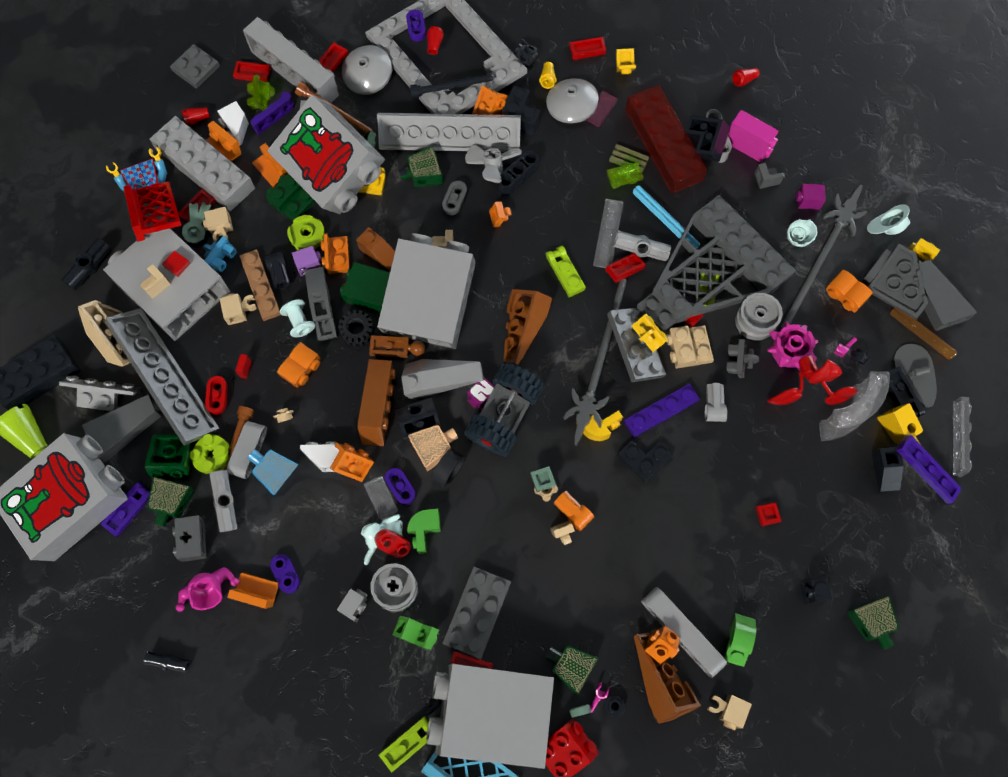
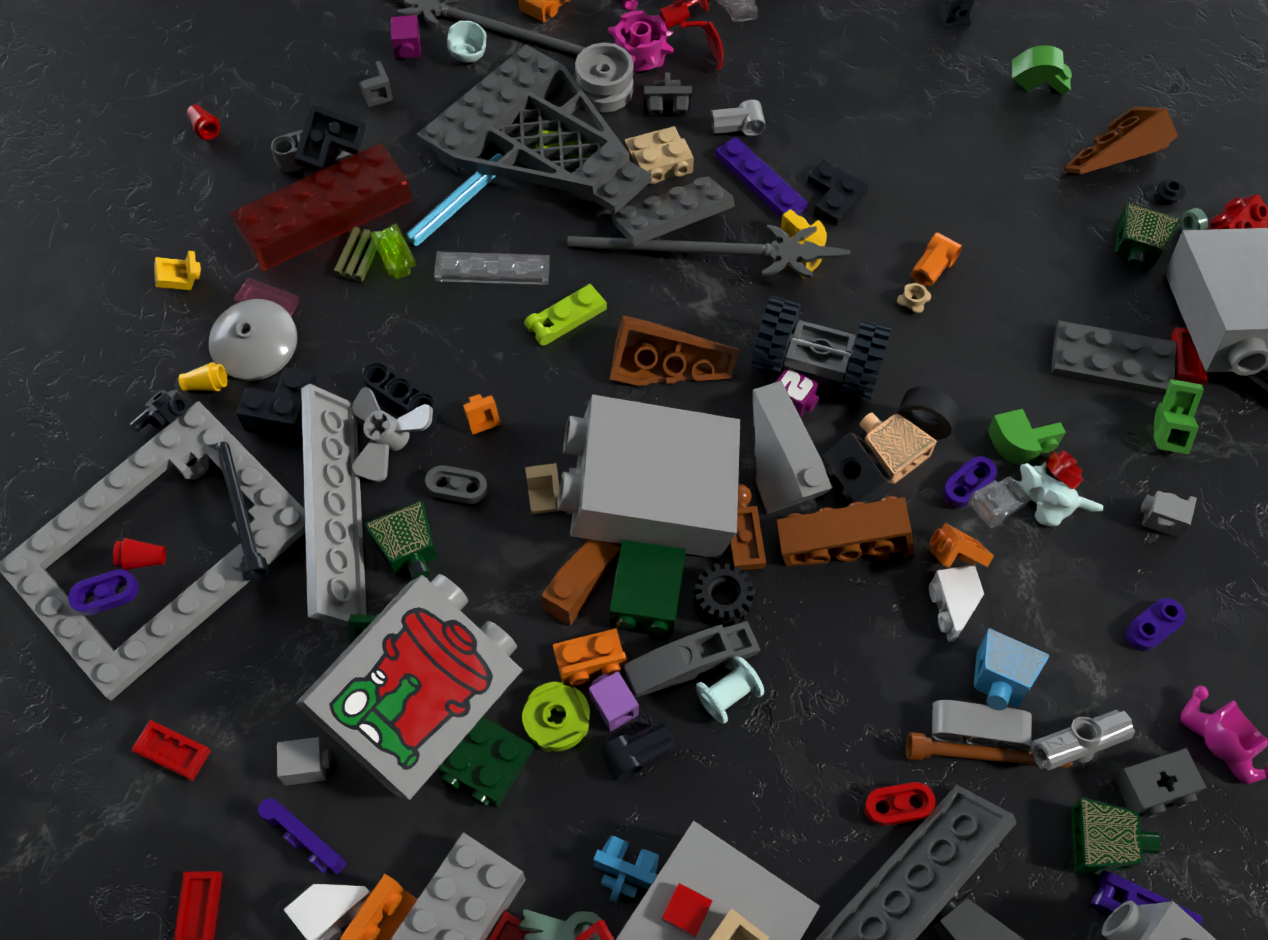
camera: 100 degrees left, 10 degrees down
(168, 457) = (1035, 858): dark green plate -> none
(200, 453) = (1026, 777): lime plate -> none
(218, 222) = (559, 885): tan brick -> none
(234, 308) = (729, 809): tan brick -> none
(243, 366) = (836, 767): red tile -> none
(255, 591) = (1205, 658): orange panel -> none
(260, 285) = (670, 780): medium nougat plate -> none
(261, 93) = (240, 881): clear neon green hips -> none
(268, 166) = (422, 818): orange panel -> none
(283, 415) = (906, 678): tan plate -> none
(289, 60) = (184, 817): light grey brick -> none
(299, 365) = (812, 672): orange brick -> none
(303, 90) = (261, 765): dark orange piece -> none
(372, 75) = (210, 693): light grey dish -> none
(382, 586) = (1125, 458): light grey wheel -> none
(489, 102) = (277, 449): orange bracket -> none
(543, 479) = (909, 290): sand green plate -> none
(562, 531) = (968, 267): tan tile -> none
(587, 48) = (145, 332): red tile -> none
(599, 695) = (1161, 203): dark pink hand -> none
(625, 267) = (549, 237): red plate -> none
(649, 332) = (657, 186): yellow hips -> none
(653, 248) = (513, 217): light grey piece -> none
(662, 644) = (1082, 138): orange brick -> none
(691, 639) = (1052, 129): light grey beam -> none
(733, 711) = (1128, 74): tan brick -> none
(752, 136) = (318, 85): dark pink brick -> none
(768, 514) = (871, 61): red tile -> none

